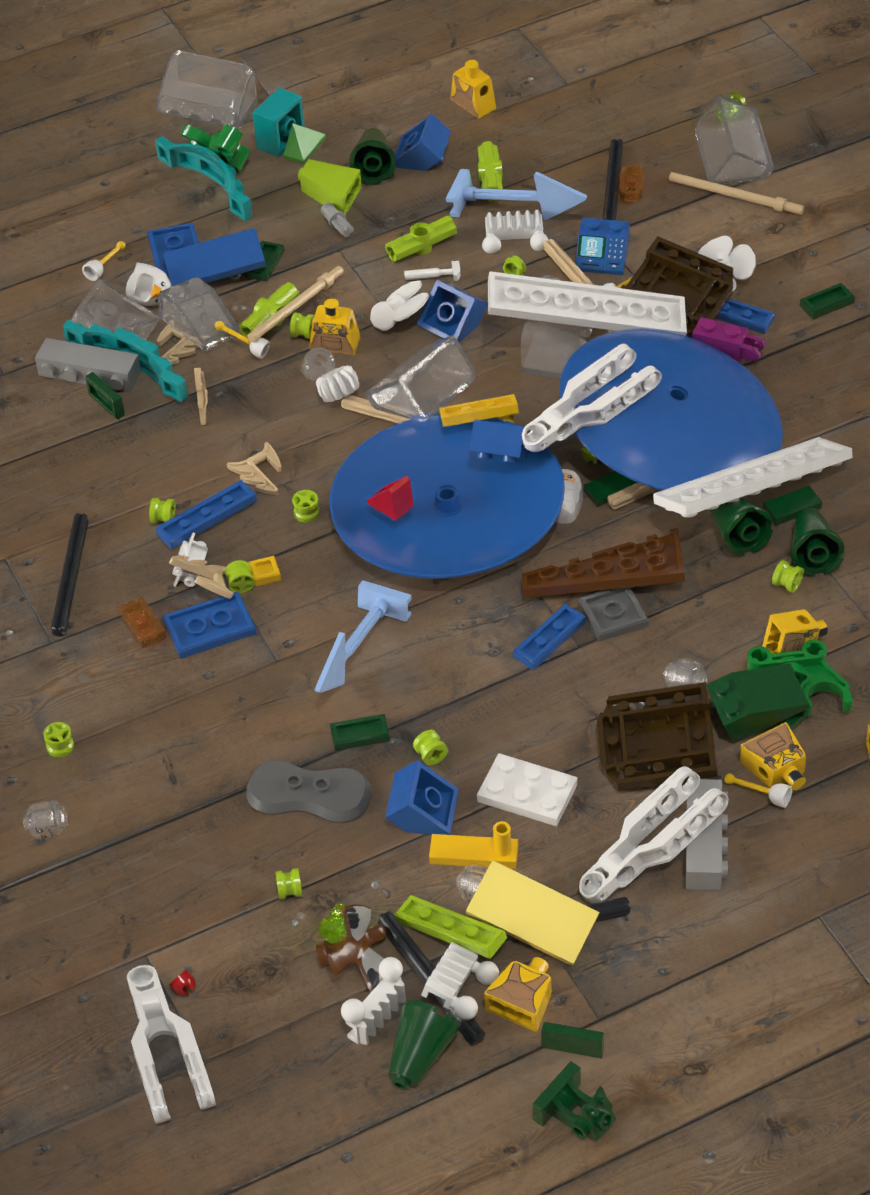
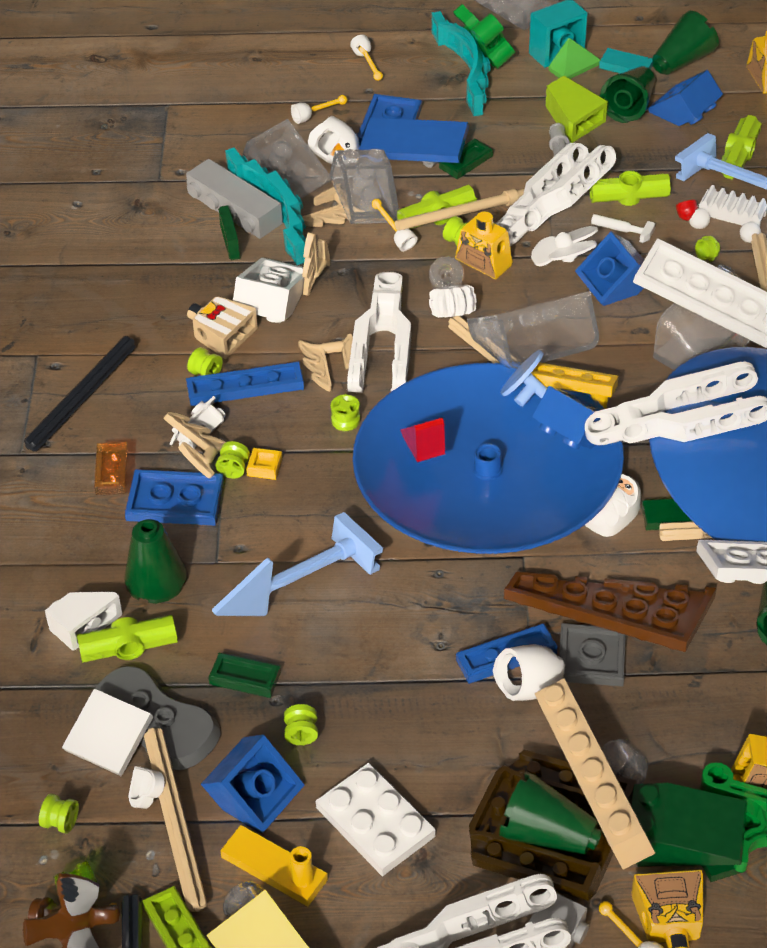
camera: 25 degrees right, 0 degrees up
(107, 192) = (365, 47): none -> hinge
(153, 473) = (223, 324): none -> tan torso
(175, 430) = (270, 288): none -> white slope
(201, 740) = (82, 614): none -> white slope
(235, 678) = (153, 564): none -> dark green cone
(250, 742) = (127, 638): none -> lime piece
(285, 813) = (107, 732): none -> white tile
(287, 416) = (382, 316): none -> white piece
(342, 837) = (145, 786): none -> white tile
(346, 129) = (621, 61): none -> teal tile
(355, 278) = (539, 204): none -> white piece
(379, 849) = (176, 822): none -> tan axle
(393, 95) = (685, 43): none -> dark green cone
(442, 422) = (523, 374): none -> light blue shield
(478, 240) = (686, 209): none -> red hinge
(585, 635) = (538, 667): none -> white piece
(660, 732) = (548, 818): none -> dark green cone
(675, 686) = (594, 774): none -> tan brick

